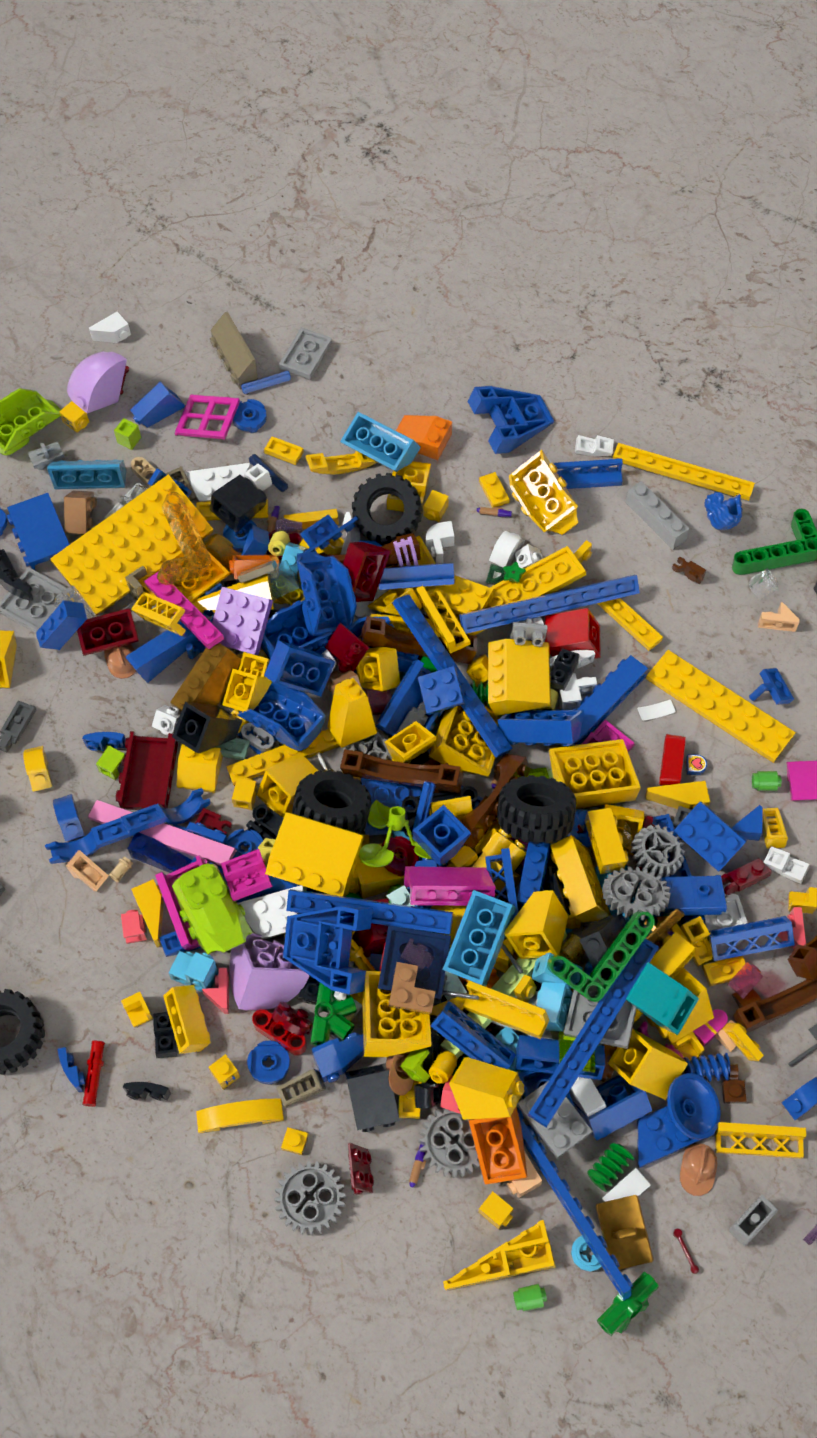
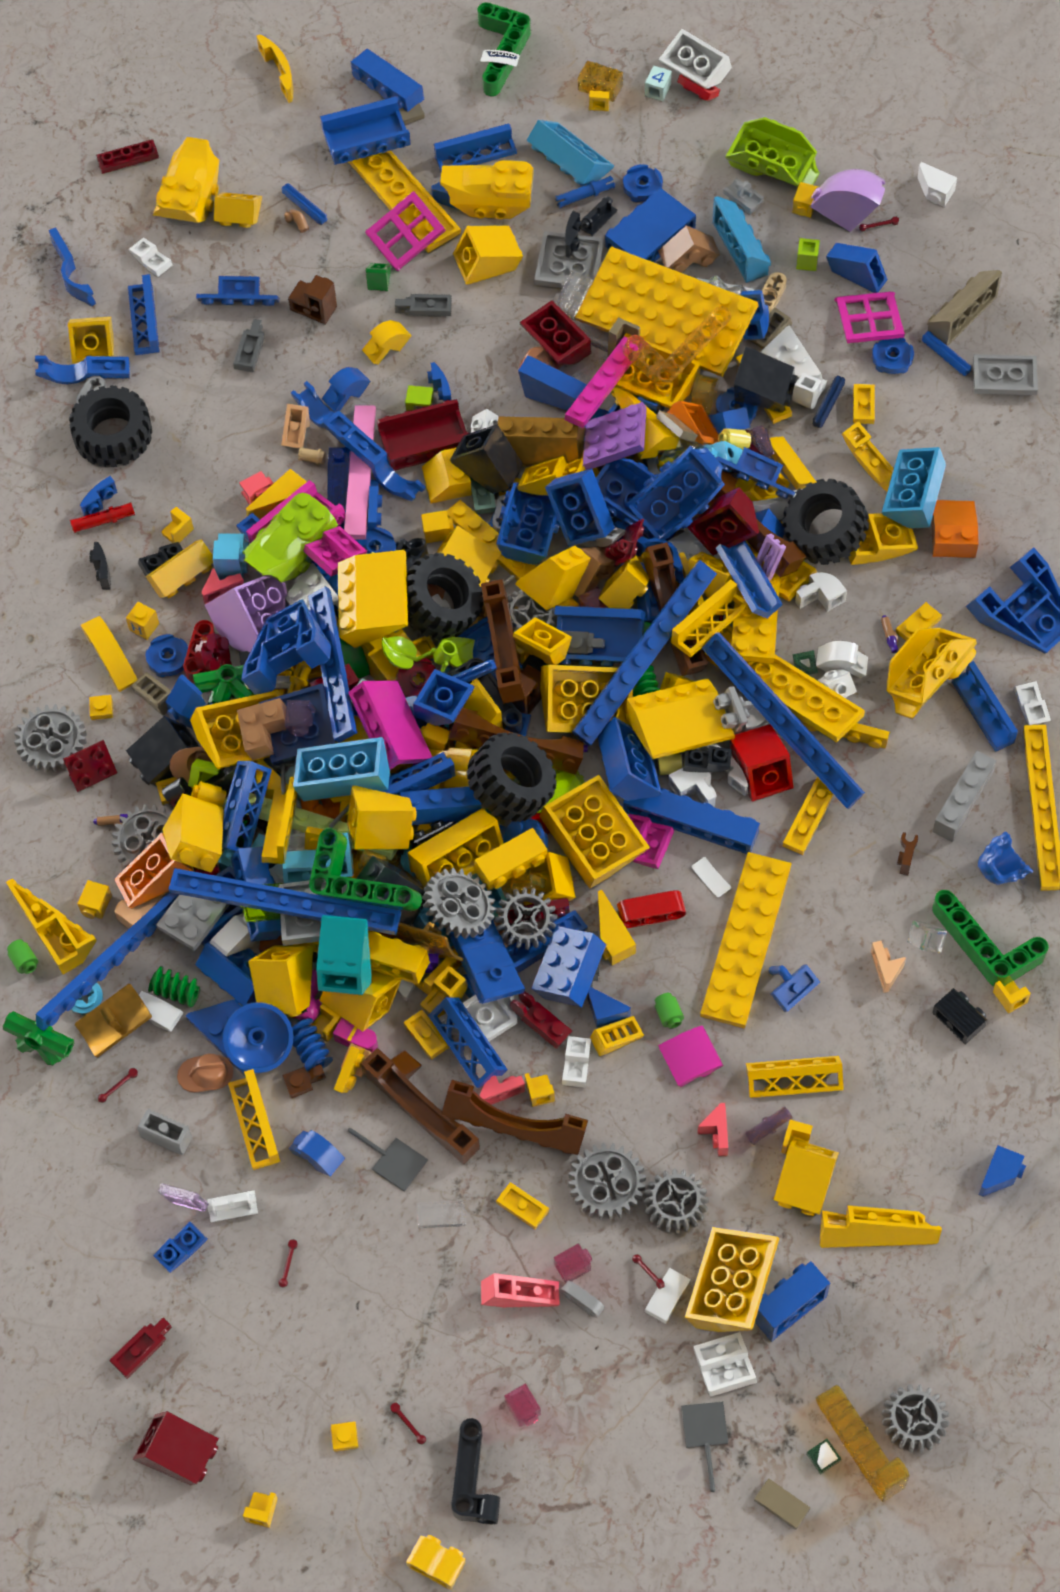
camera: 70 degrees right, 0 degrees up
(61, 625) = (541, 289): blue brick -> none
(155, 616) = (588, 363): yellow fence -> none
(213, 821) = (393, 510): dark red plate -> none
(272, 519) = (775, 427): medium nougat piece -> none
(435, 506) = (864, 572): yellow brick -> none
(441, 690) = (618, 646): blue plate -> none
(513, 577) = (804, 675): green plate -> none
(695, 764) = (659, 936): tile -> none
(745, 979) = (417, 1050): clear pink brick -> none

